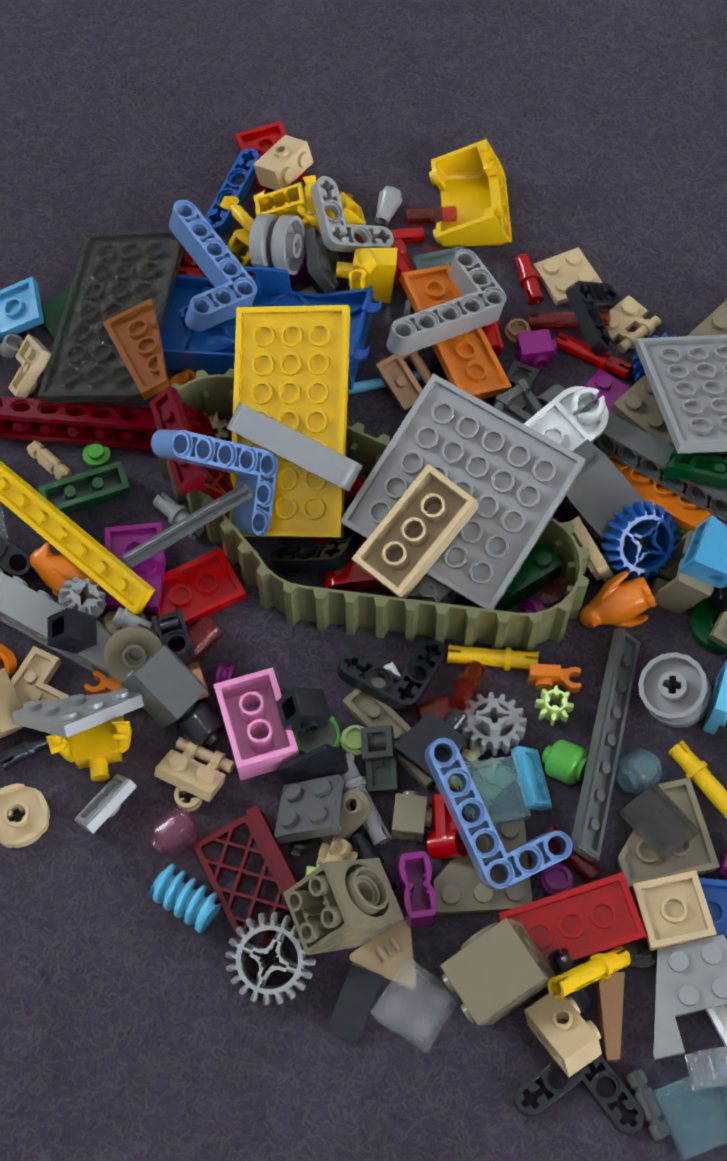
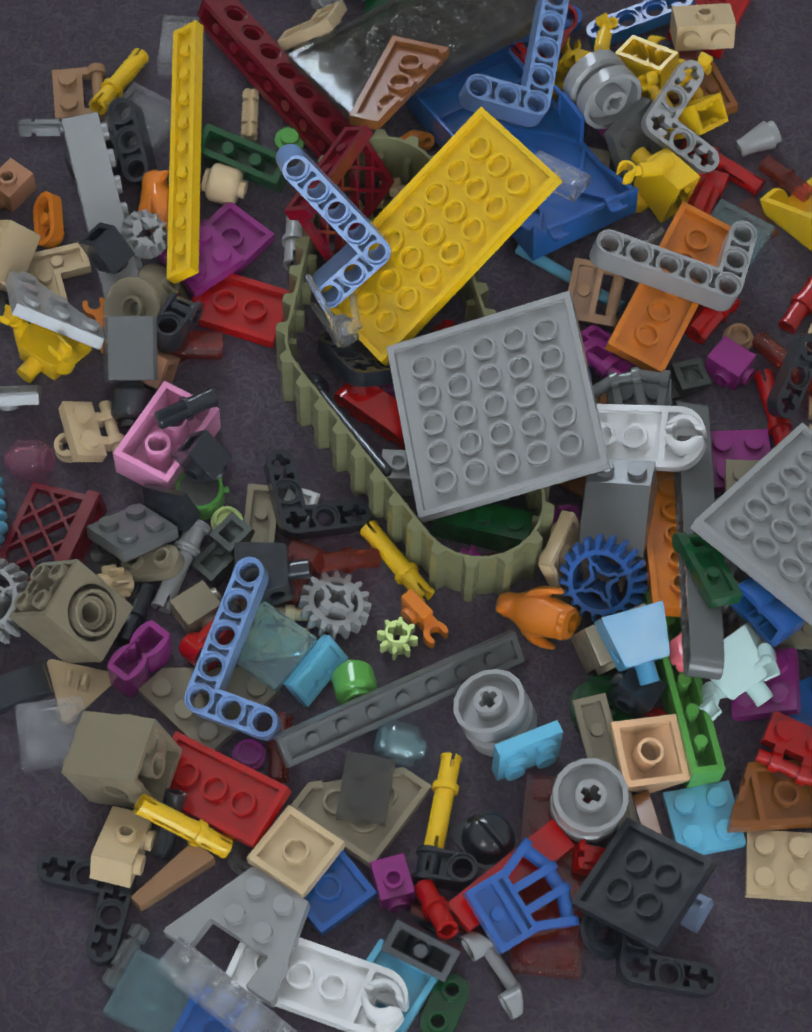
camera: 45 degrees right, 0 degrees up
(91, 517) = (224, 184): none -> tan head
(125, 619) = (155, 276): light grey pin -> none
(187, 525) = (270, 246): dark grey axle -> none
(225, 673) = (190, 384): magenta bush -> none
(255, 687) = (186, 408): none -> black axle
(290, 538) = (341, 328): none -> clear plant
(294, 447) = (411, 257): light grey beam -> none
(415, 532) = (419, 401): tan brick -> none

